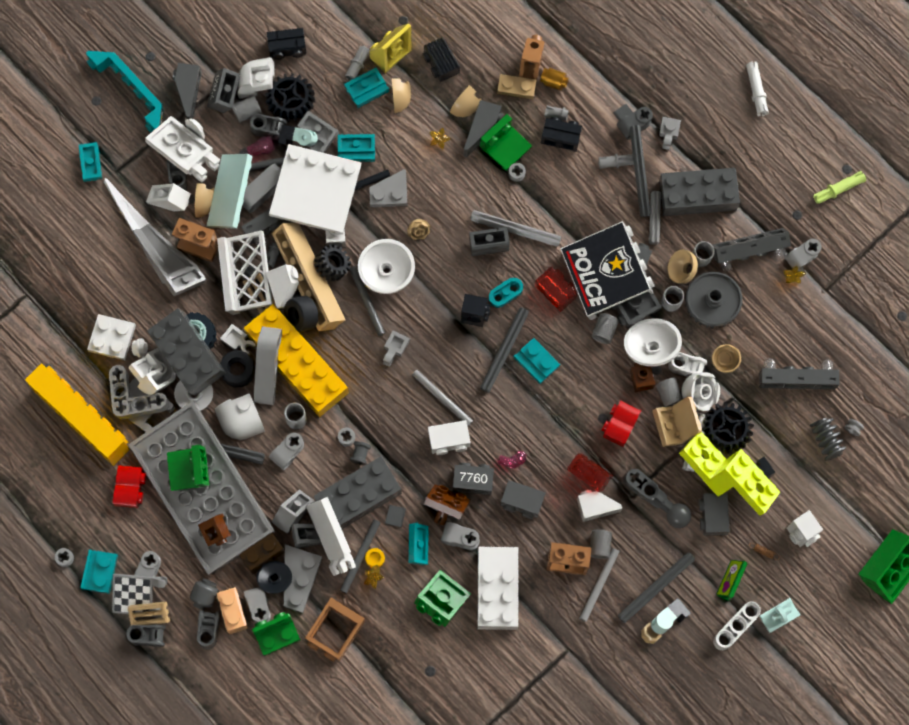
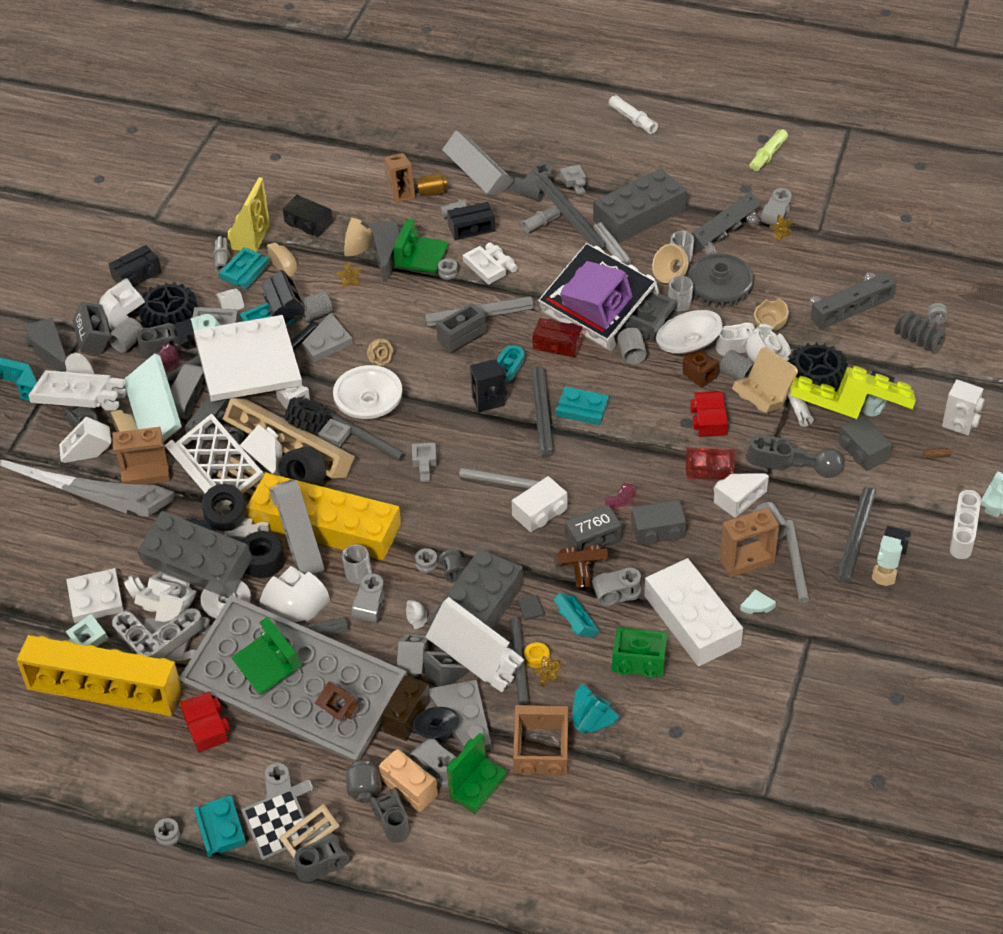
camera: 25 degrees left, 25 degrees down
(95, 371) = (87, 627): none -> light aqua brick
(215, 320) = (219, 493): none -> black tyre
(314, 478) = (416, 614): none -> white piece
(341, 112) = (230, 299): none -> white slope
(345, 287) = (335, 432): none -> light grey plate
(373, 141) = (282, 296): none -> black brick
(379, 629) = (592, 712): none -> teal brick
(396, 157) = (316, 306): none -> light grey piece
(516, 86) = (398, 207): tan plate -> none
(545, 184) = (486, 266): none -> white plate
(549, 604) = (757, 603): none -> light aqua tile
(598, 276) = (597, 293): none -> medium lavender slope
(602, 75) = (477, 164): none -> light grey brick
(731, 579) = (927, 489): slope -> none

